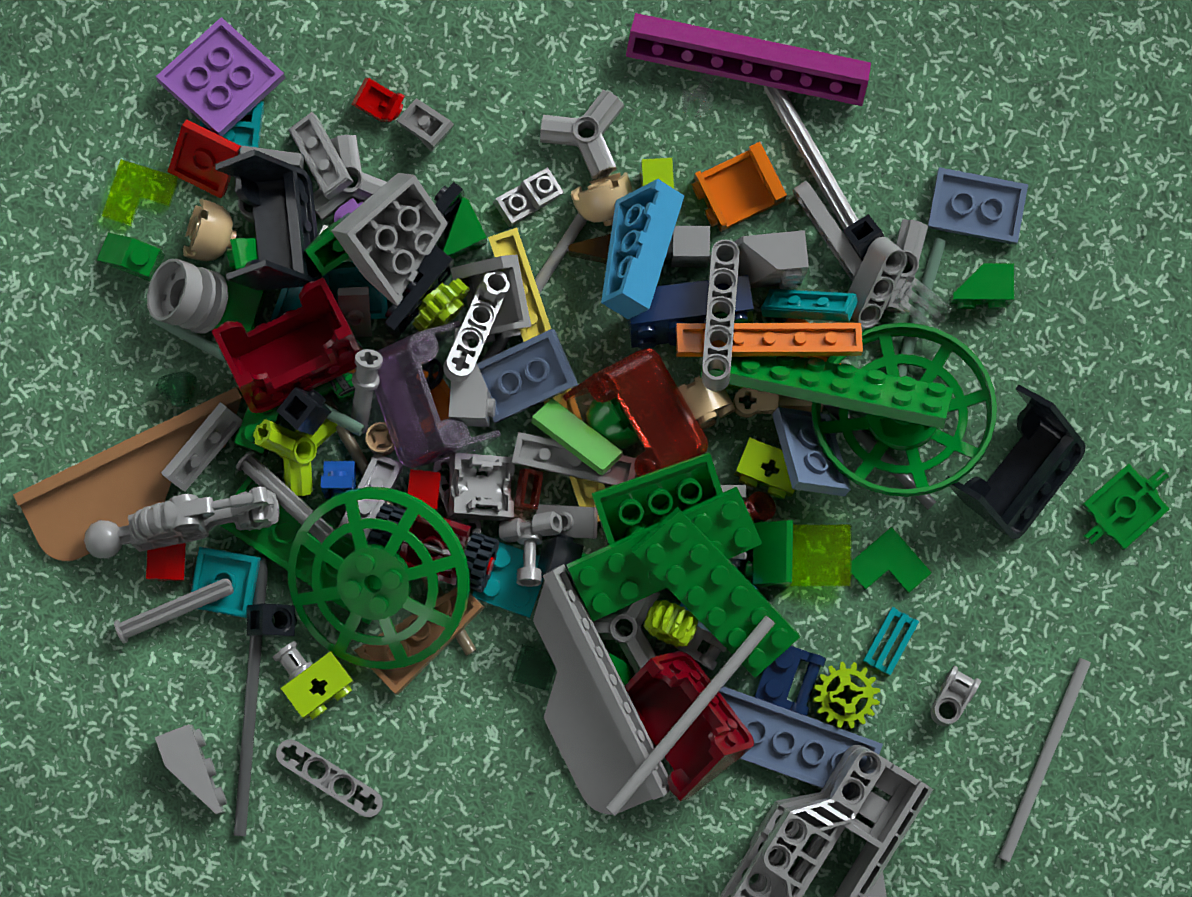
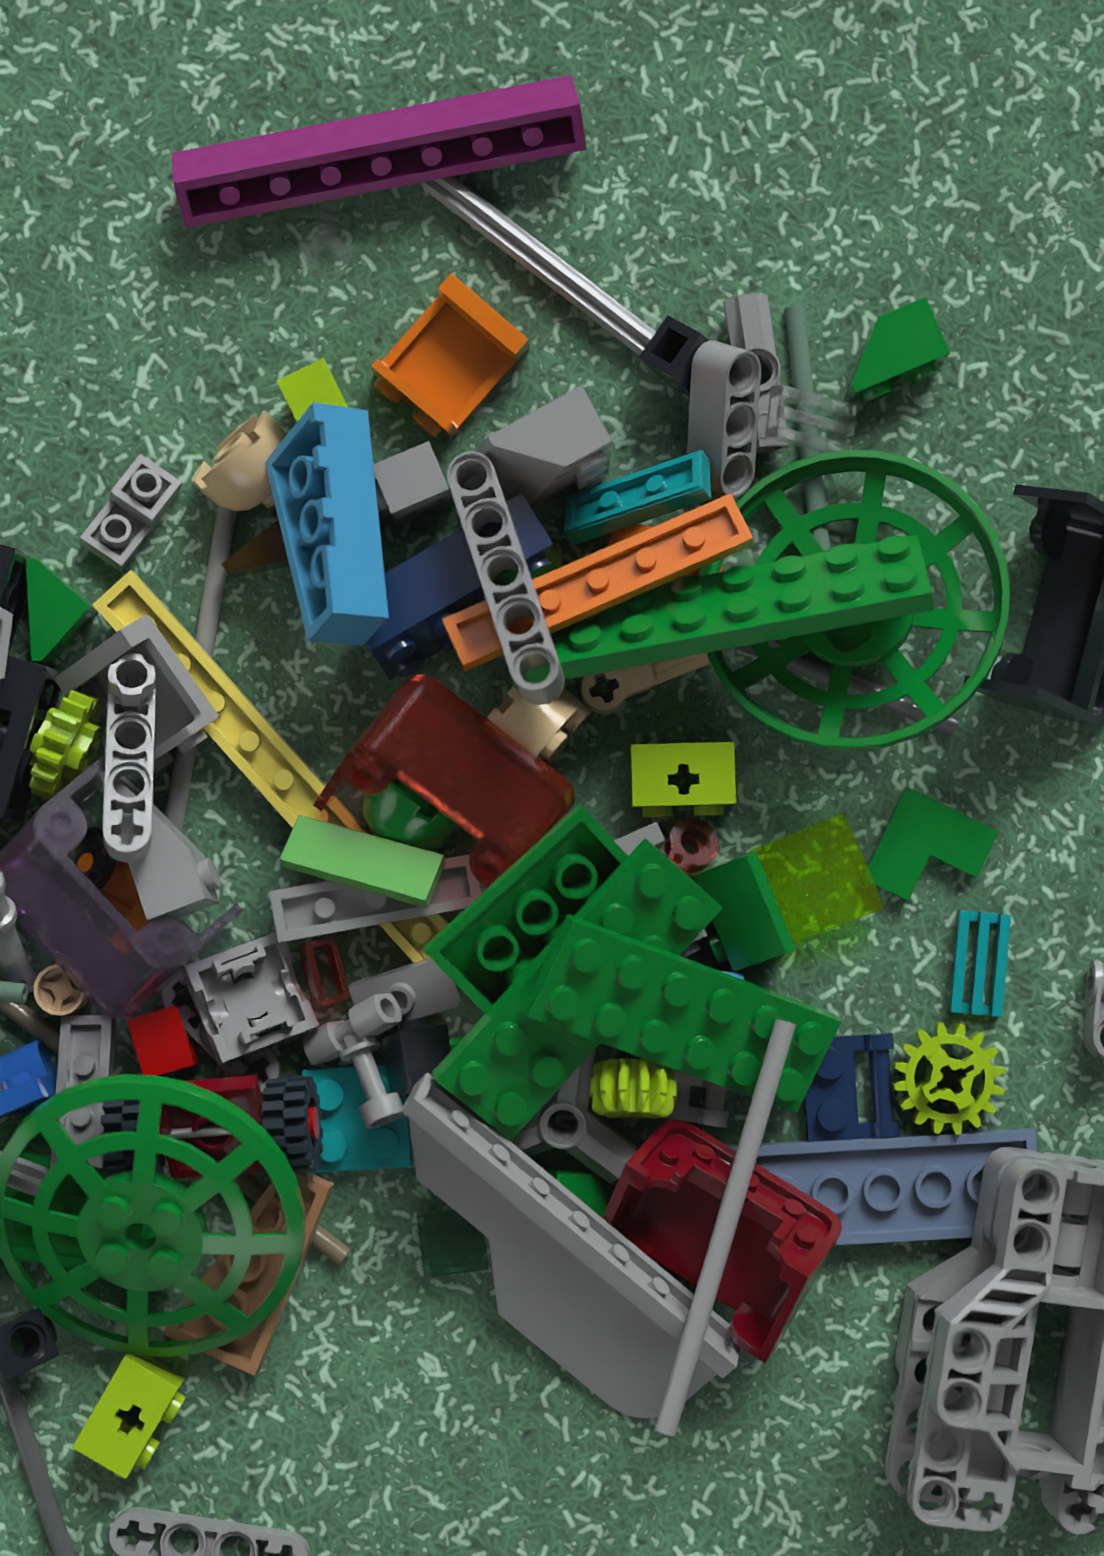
camera: 15 degrees left, 5 degrees up
(291, 660) = (57, 1391): light grey bush -> none
(527, 374) = (245, 795): sand blue plate -> none
(593, 149) = (198, 395): light grey piece -> none
(803, 456) = (730, 742): sand blue plate -> none
(828, 228) = (614, 365): light grey beam -> none
(977, 206) = (830, 230): sand blue plate -> none

